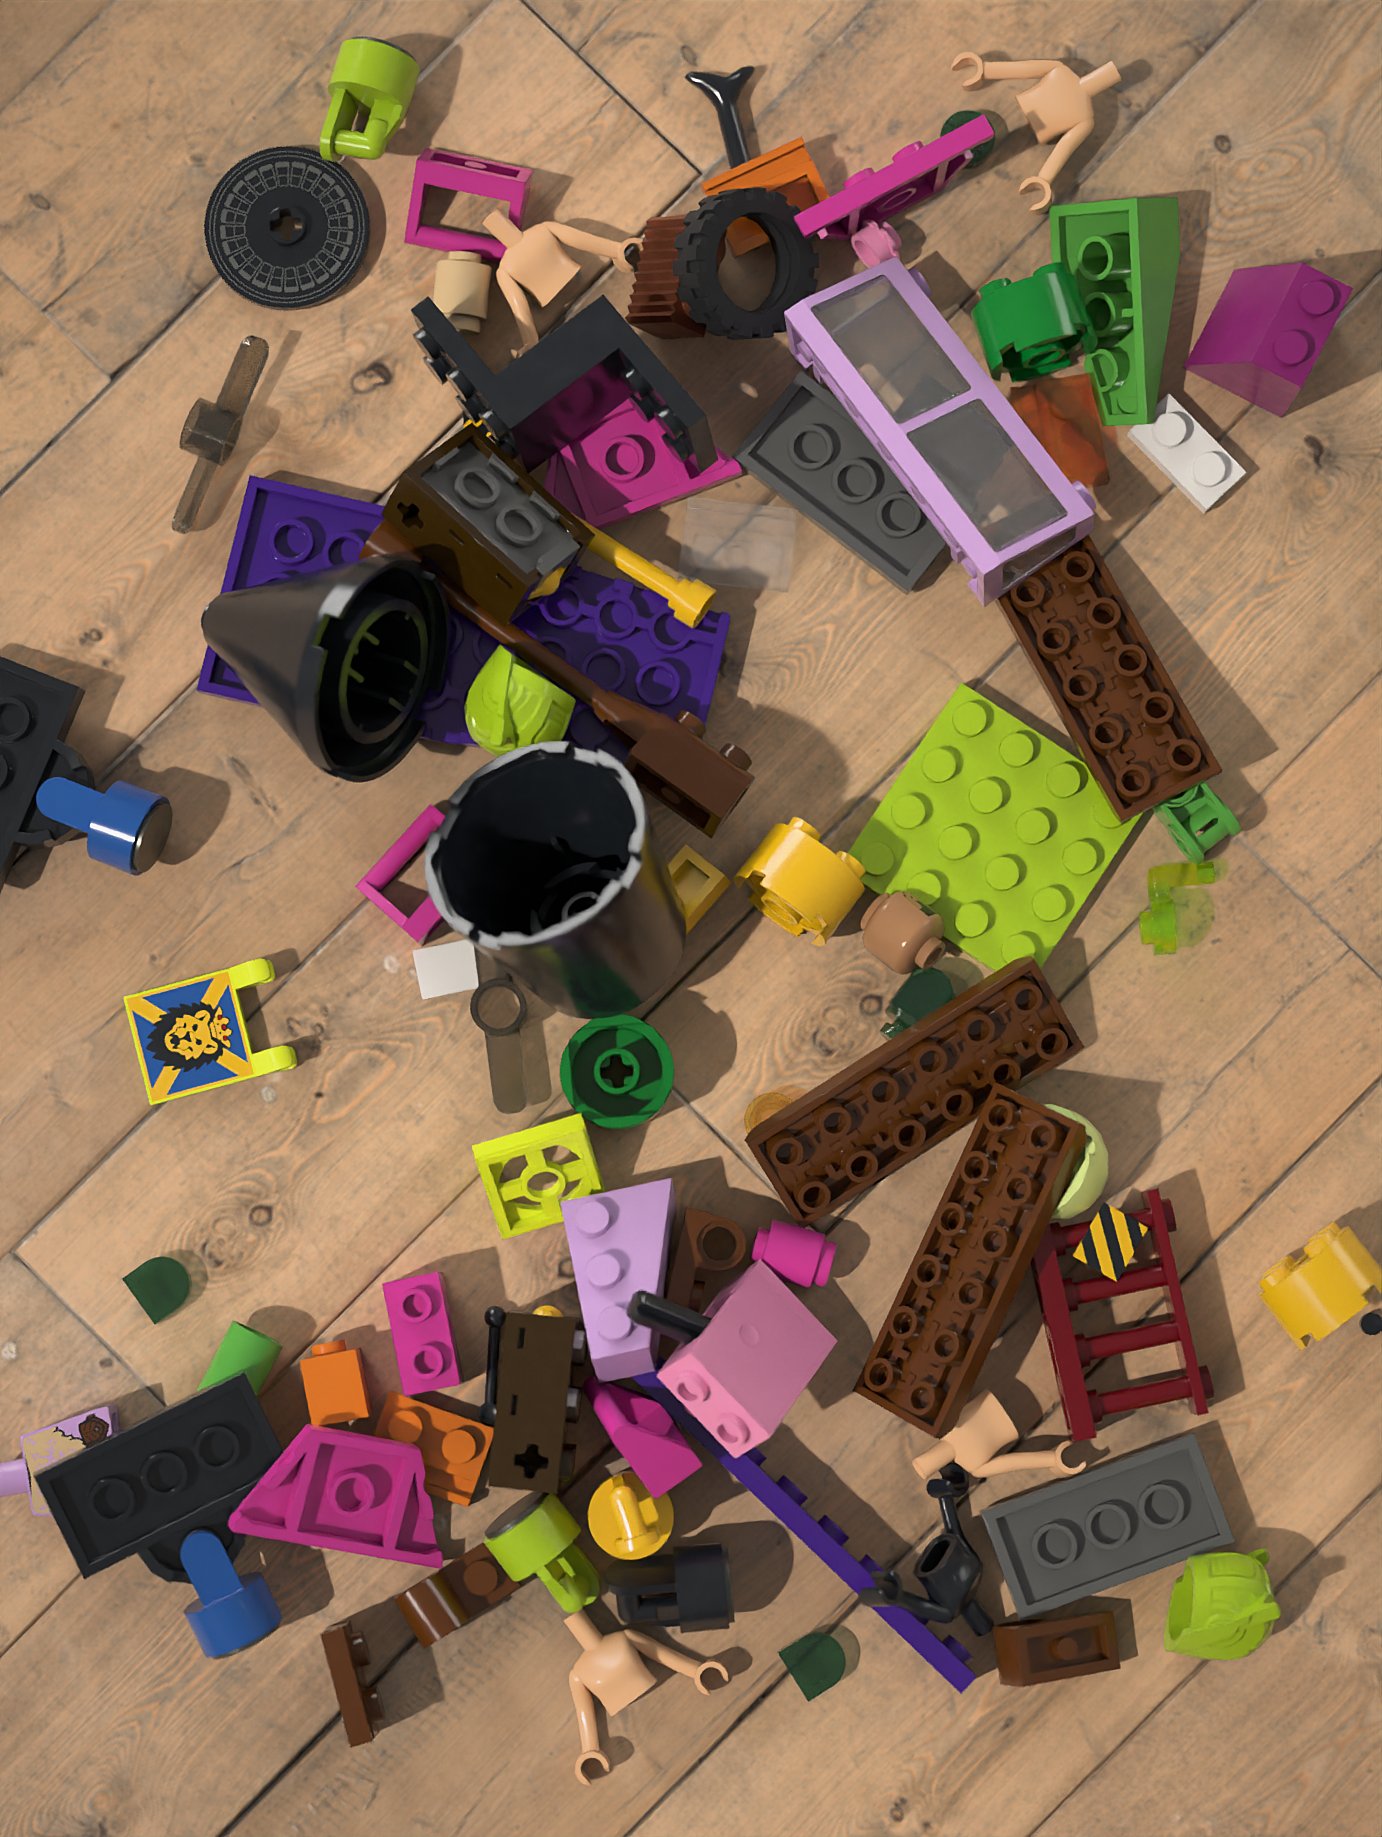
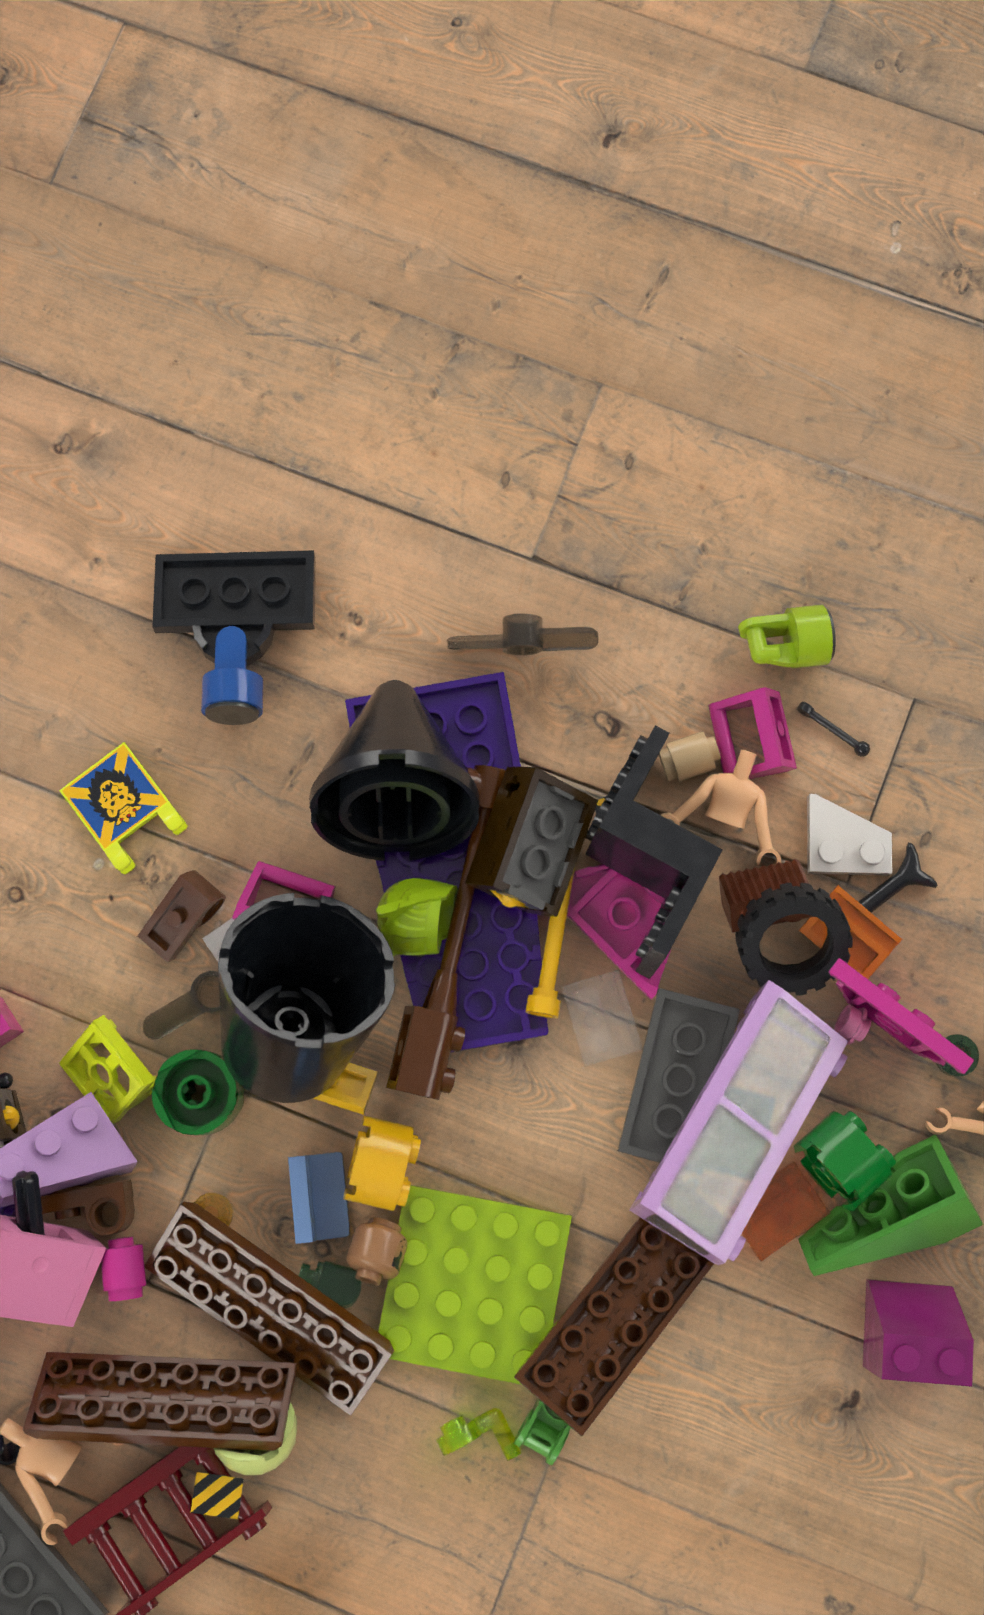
camera: 70 degrees right, 5 degrees down
(320, 255) = (672, 653): black piece -> none
(383, 1009) = (184, 909): none -> reddish brown plate
(542, 80) = (861, 748): none -> black hinge
(649, 153) = (844, 841): none -> white wing
(807, 979) = (317, 1197): none -> medium blue panel
(1187, 454) = (804, 1310): white plate -> none

